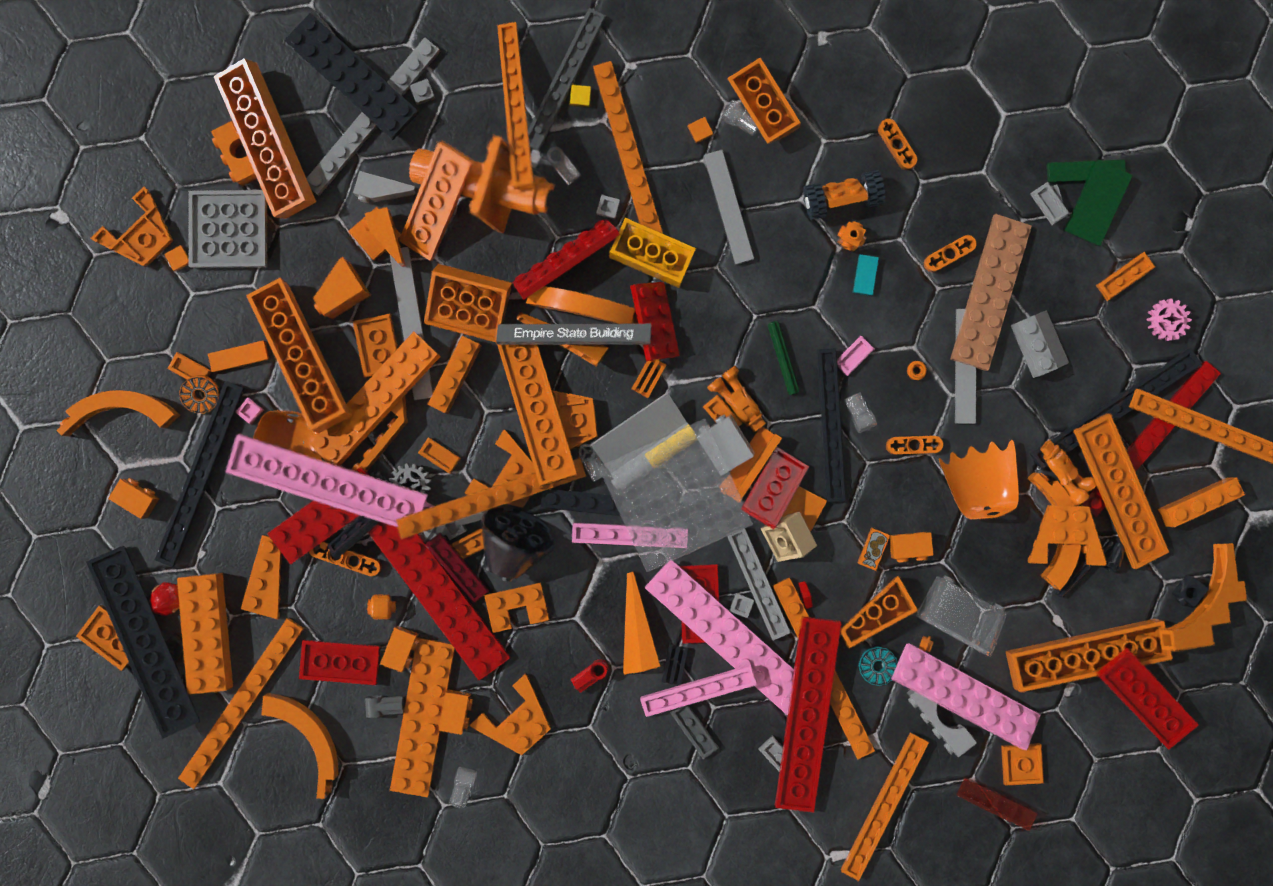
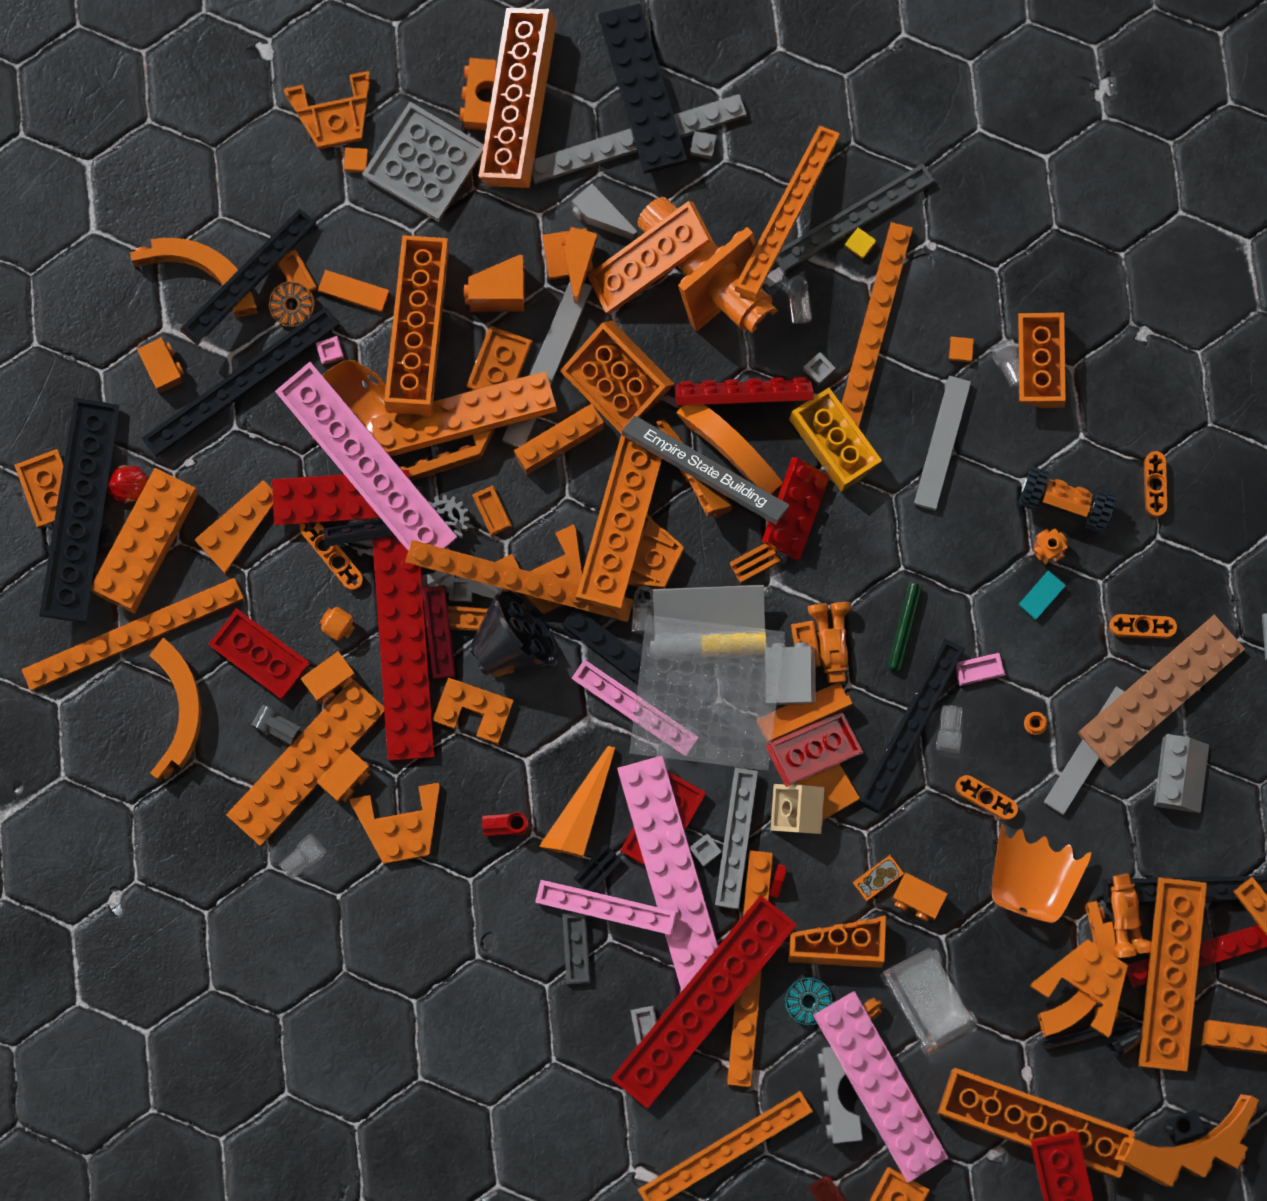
camera: 30 degrees right, 10 degrees down
(153, 396) = (248, 277): none -> black tile

